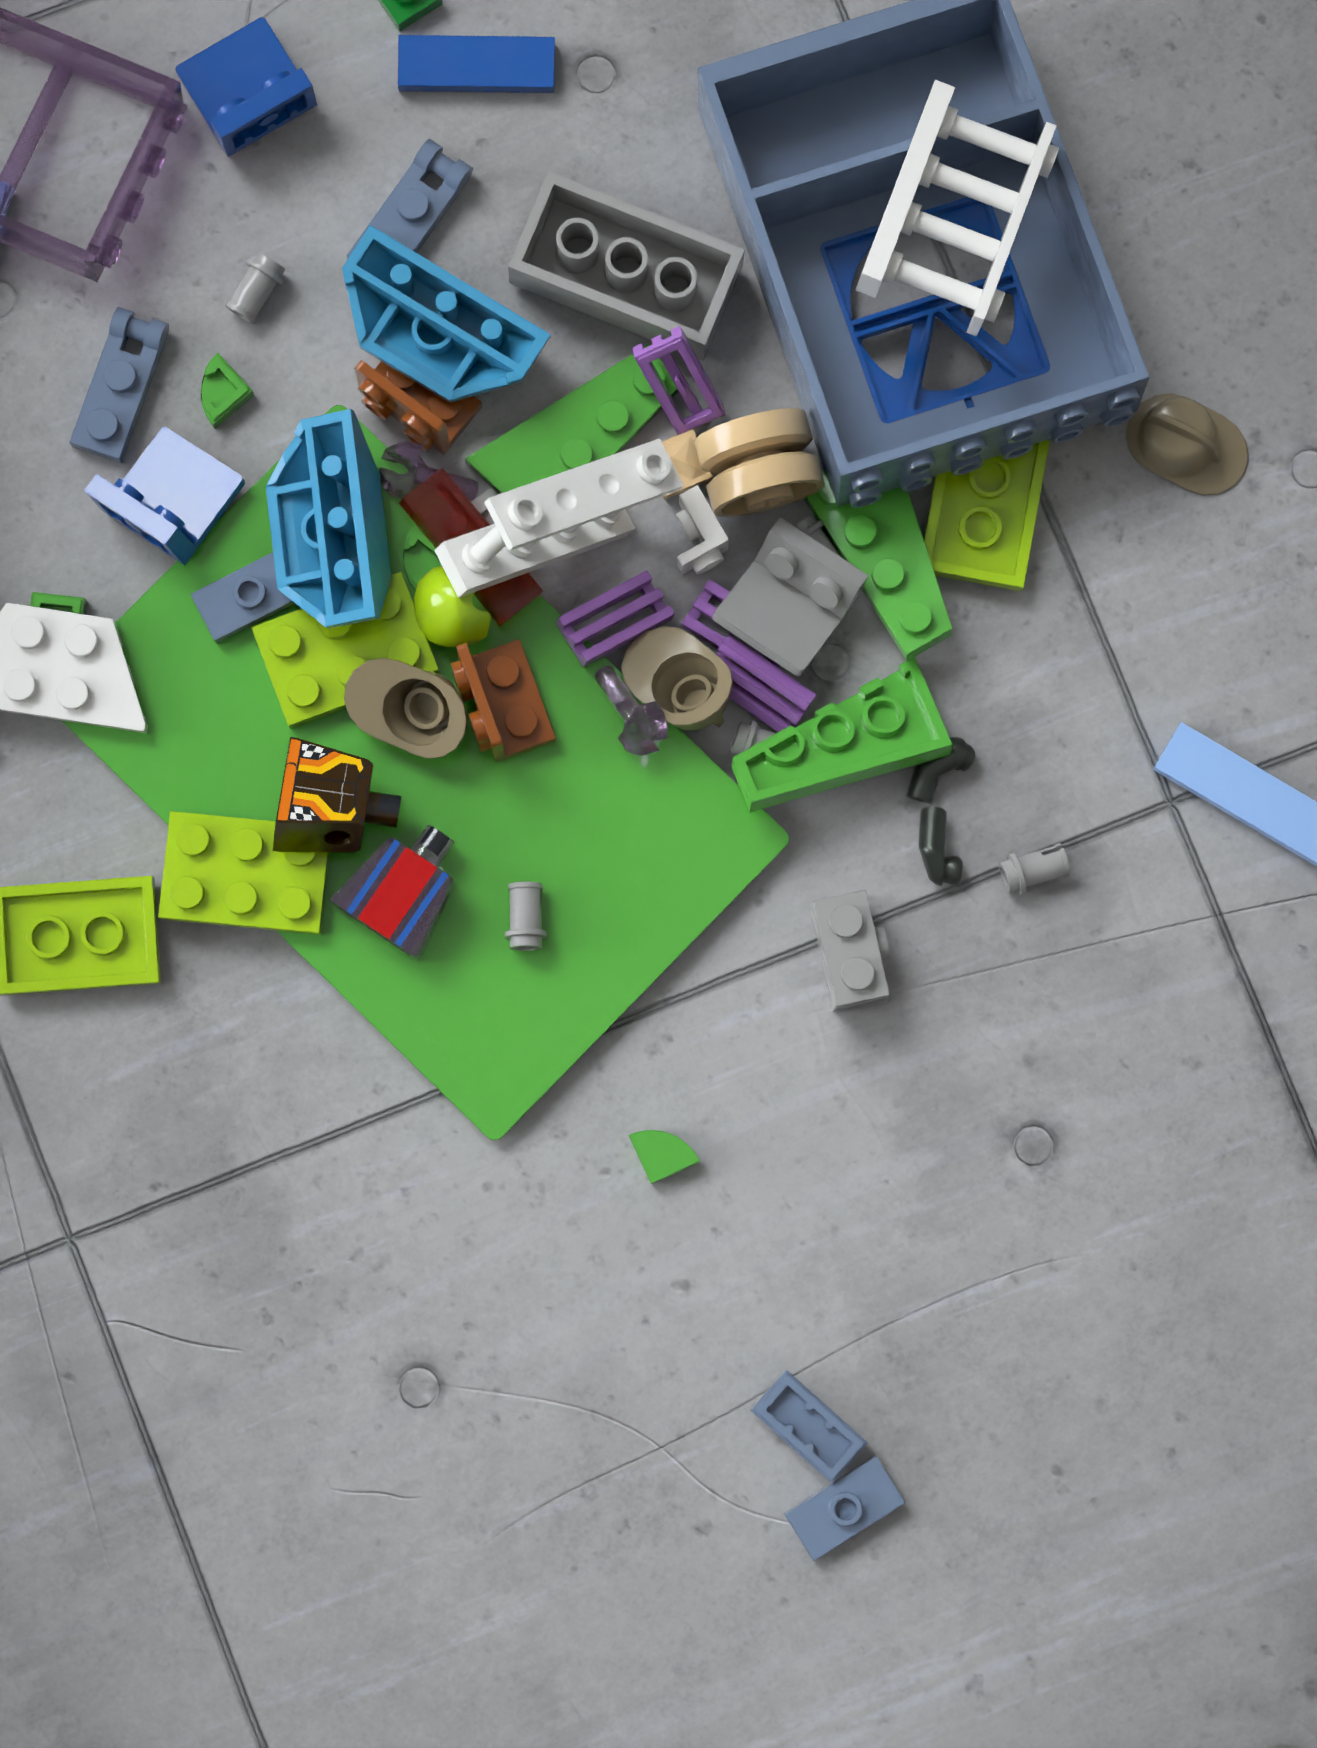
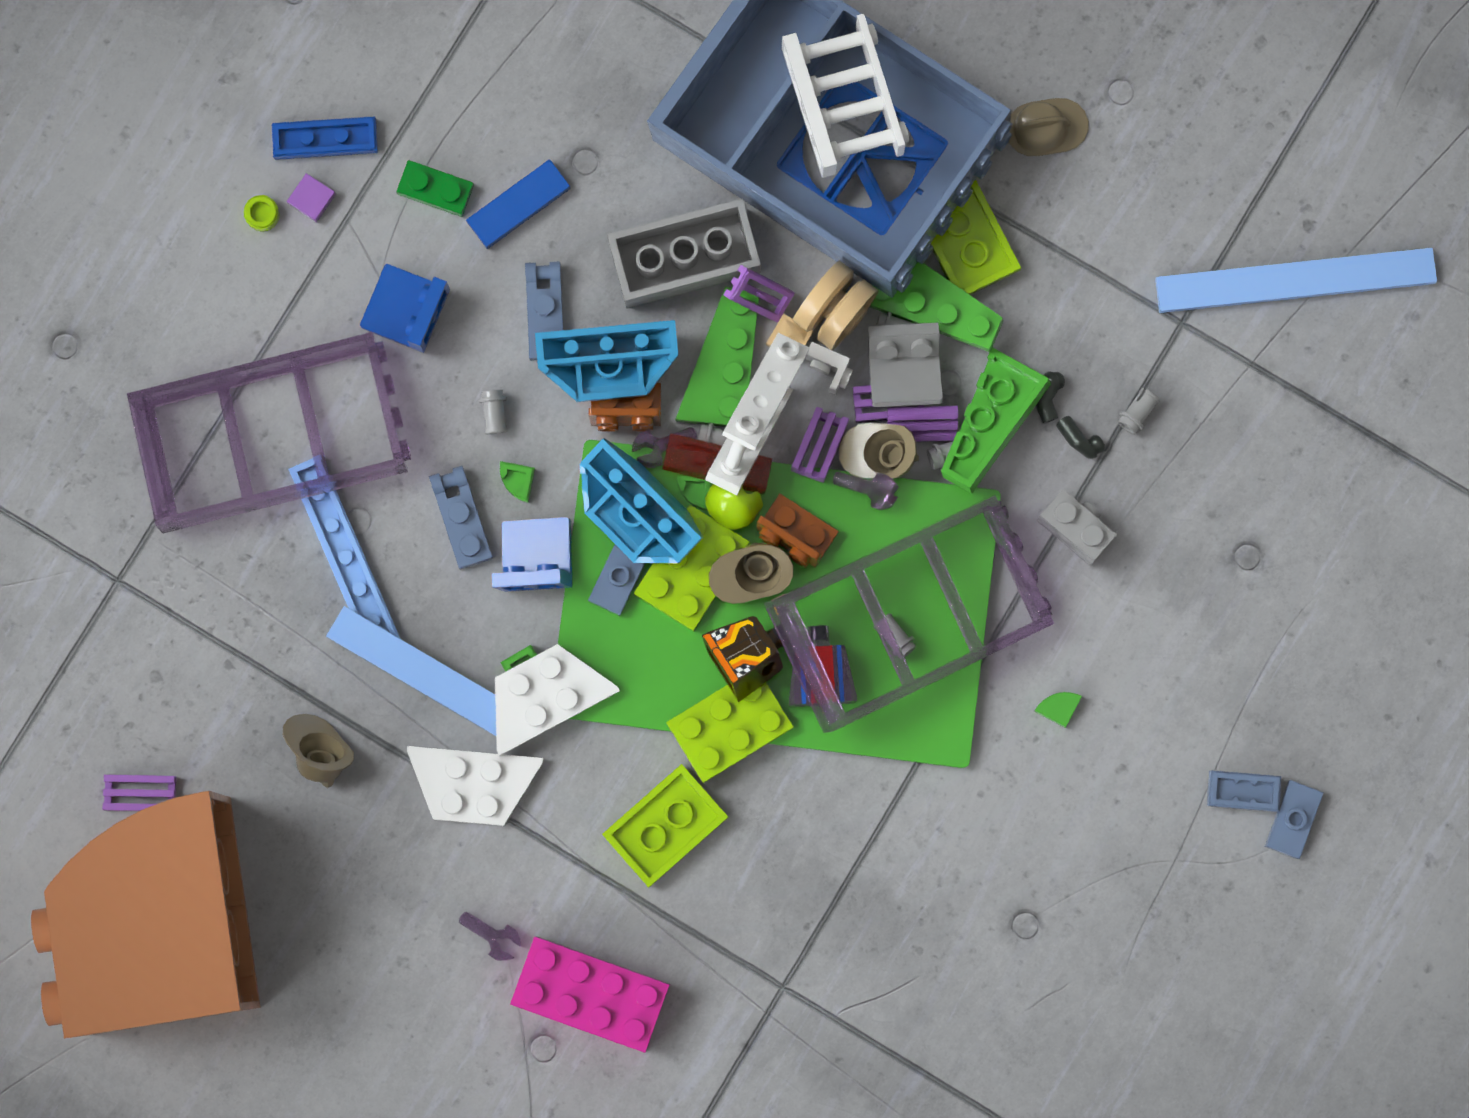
camera: 30 degrees left, 0 degrees up
(386, 865) = (808, 663): none -> window

